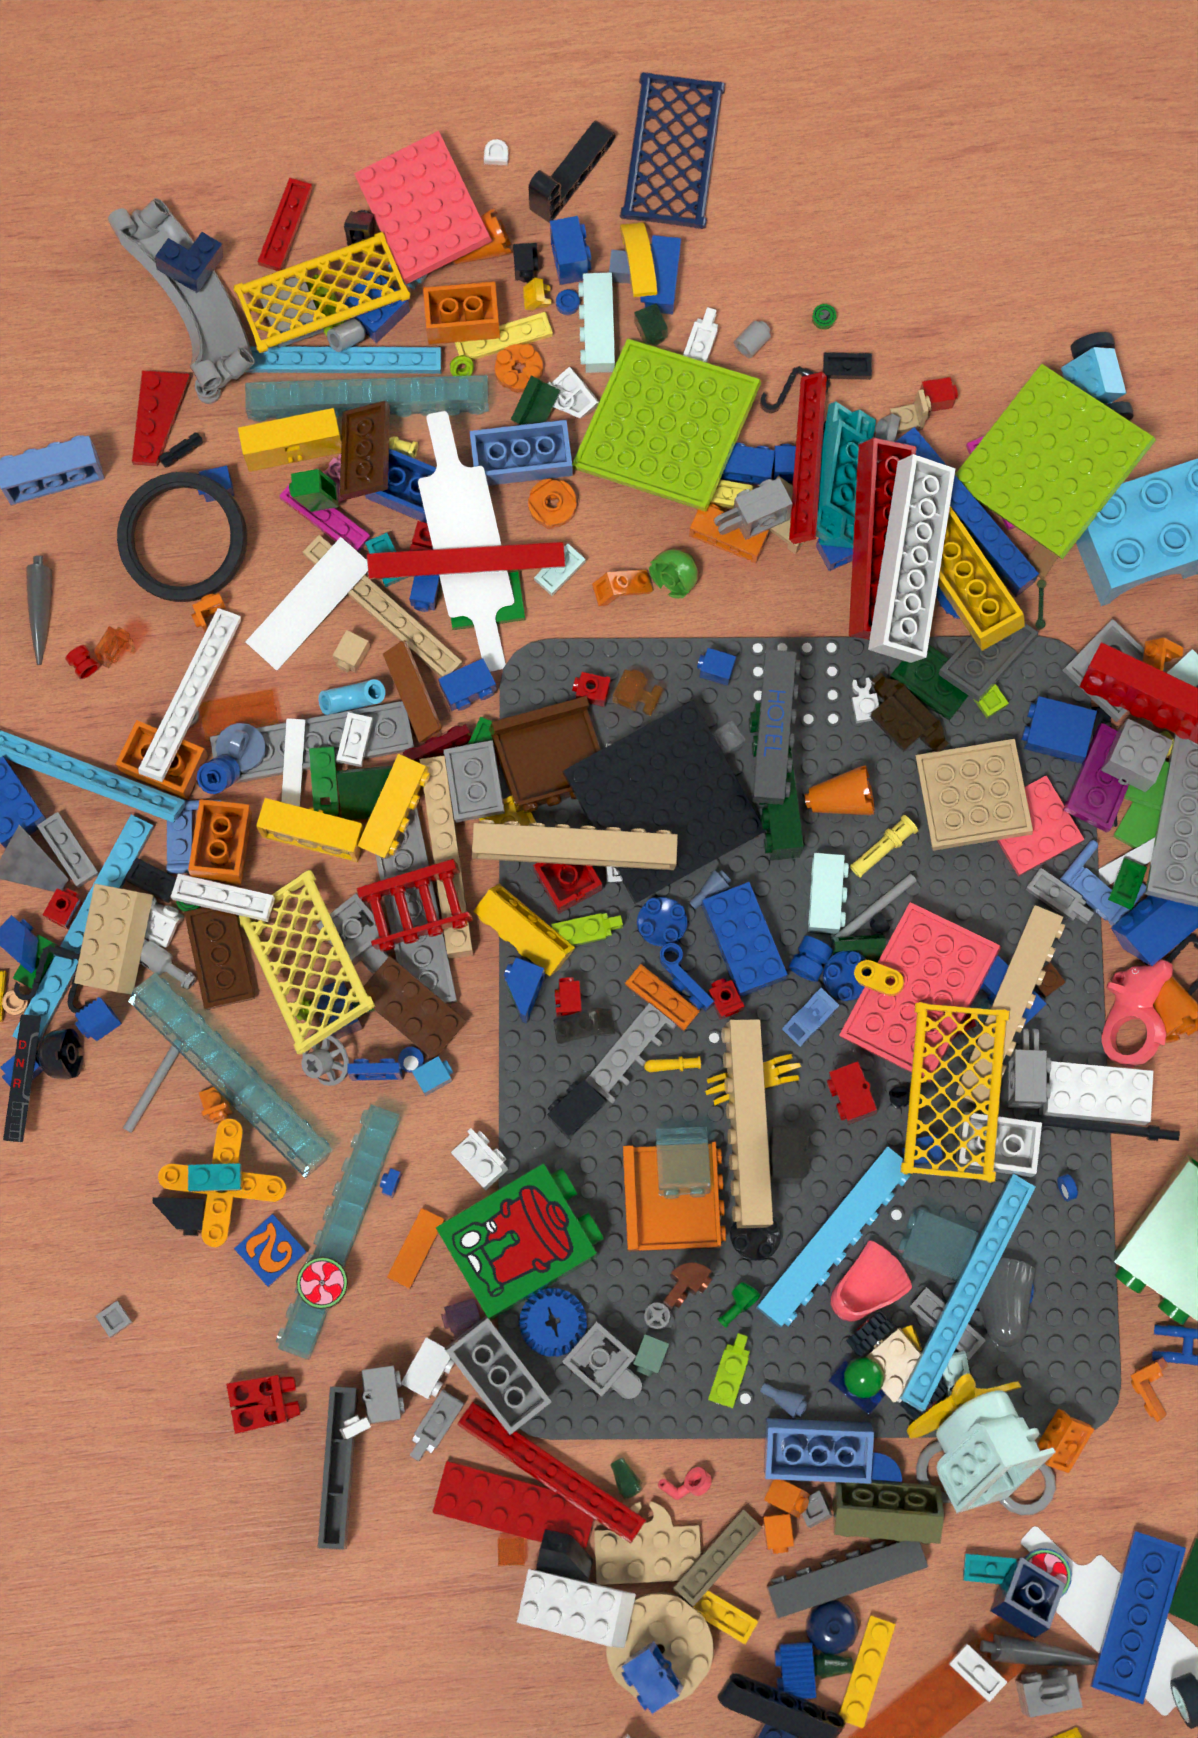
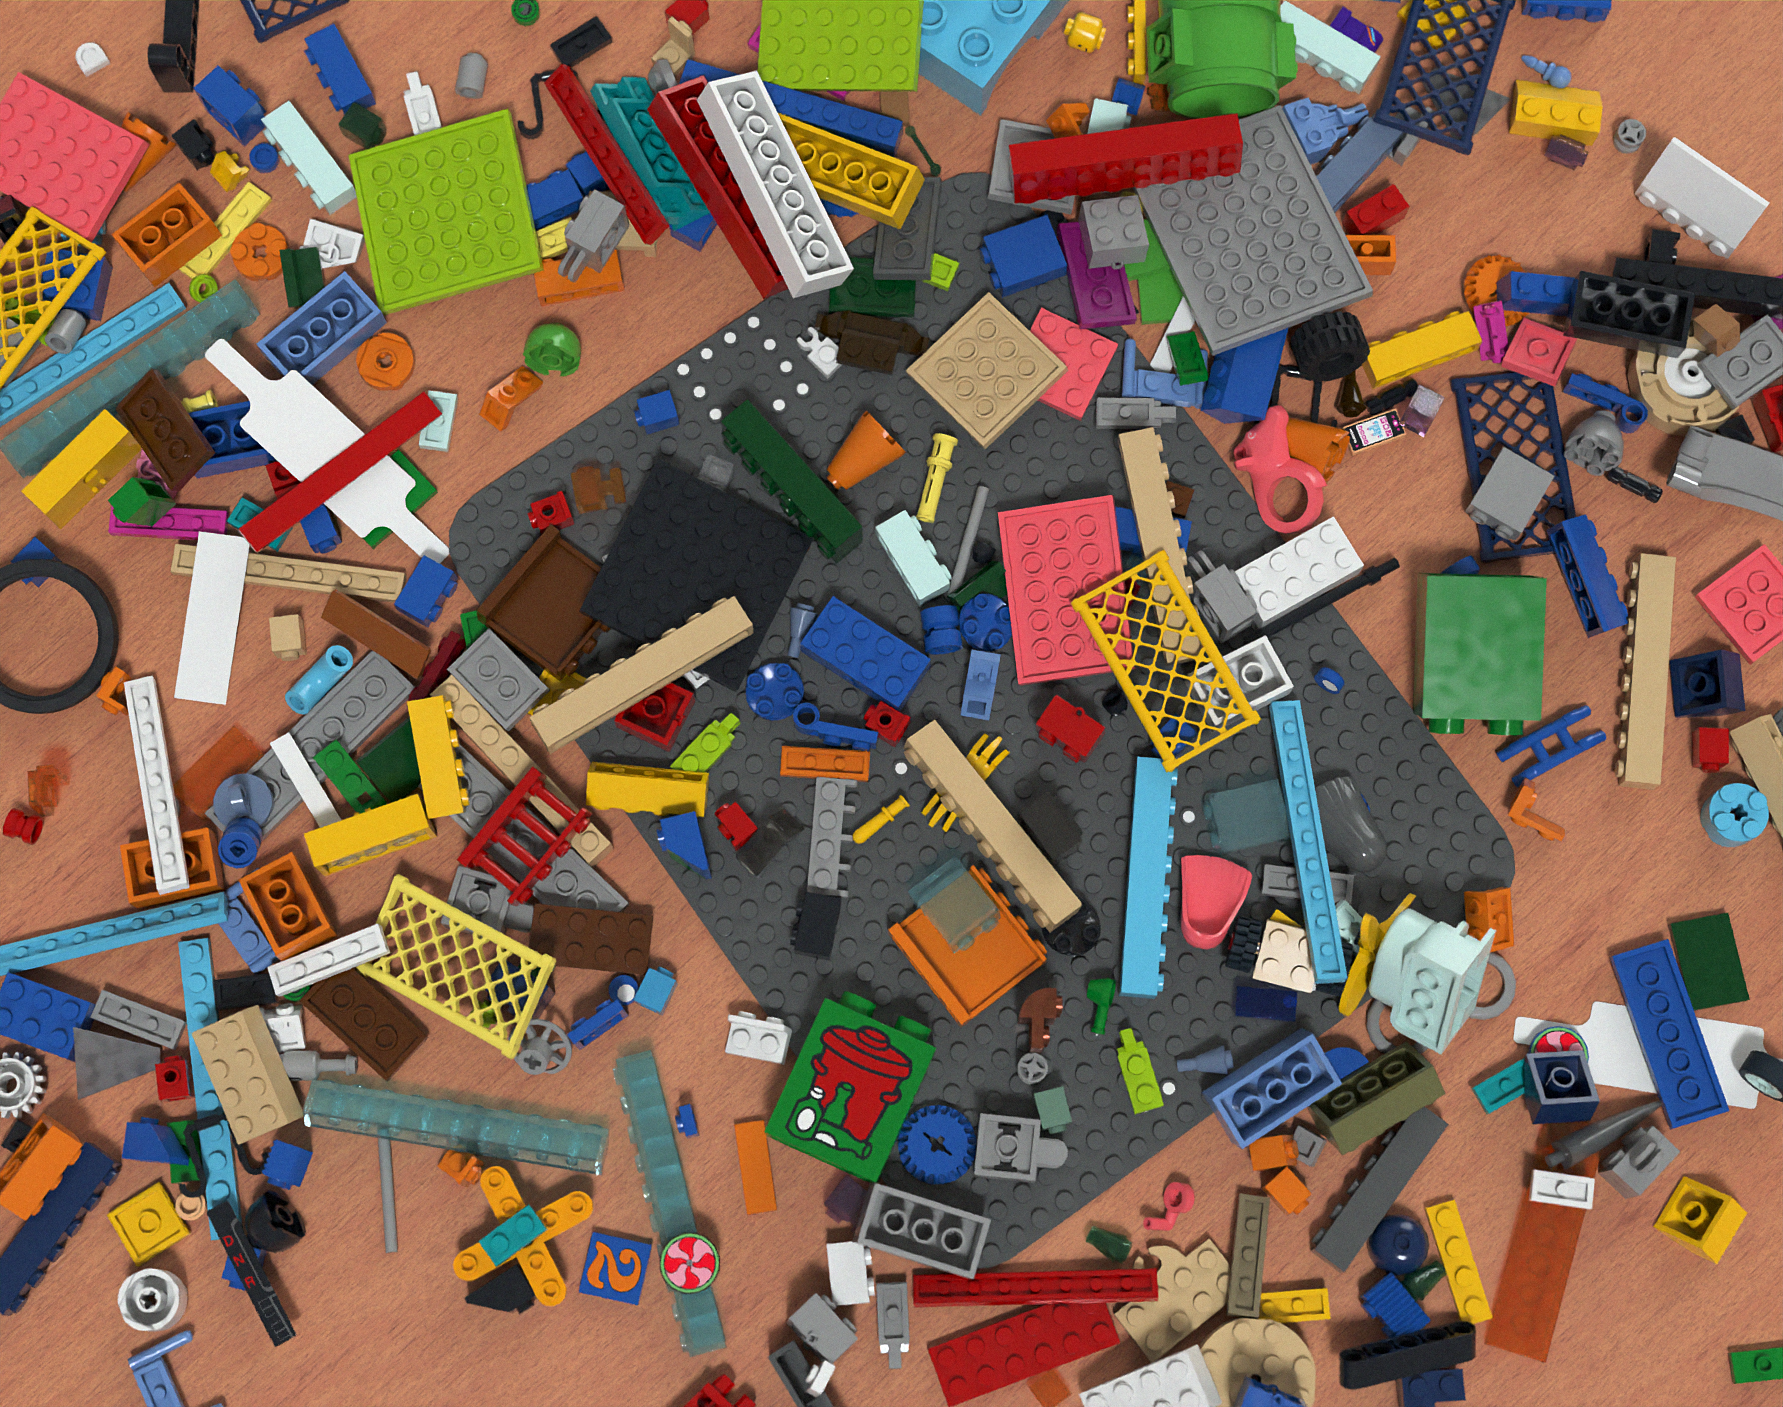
camera: 35 degrees left, 0 degrees up
(354, 739) = (351, 718): white plate -> none
(563, 1556) = (1103, 1359): black slope -> none
(619, 267) = (298, 86): sand blue brick -> none
(639, 259) = (308, 69): yellow slope -> none
(774, 727) = (756, 431): dark grey brick -> none
(863, 1377) = (1267, 989): green hair -> none
(878, 978) = (1018, 603): yellow plate -> none

